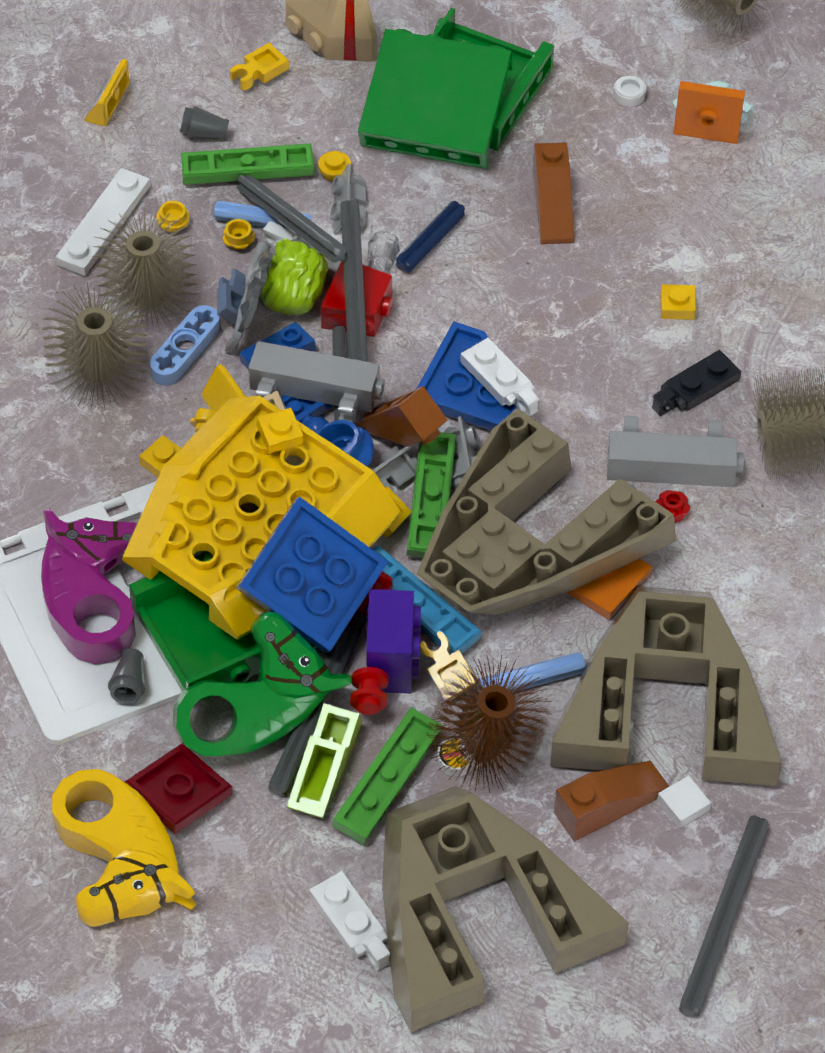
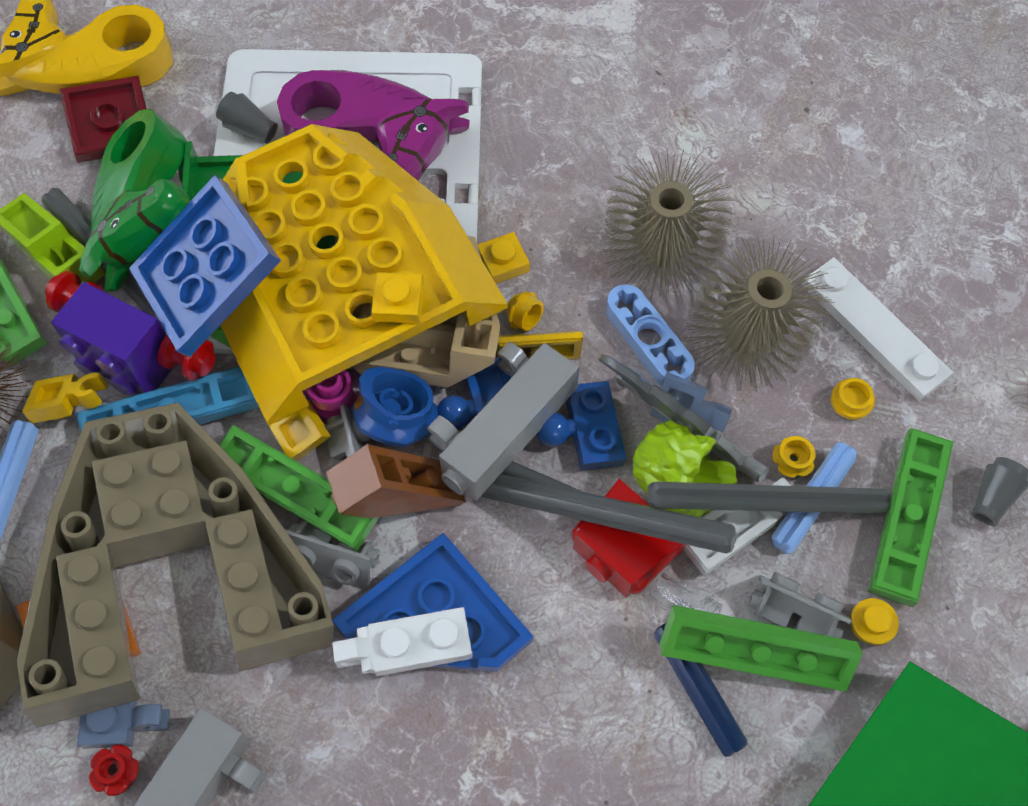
camera: 115 degrees right, 10 degrees up
(390, 199) = (759, 648): none -> bright green plate

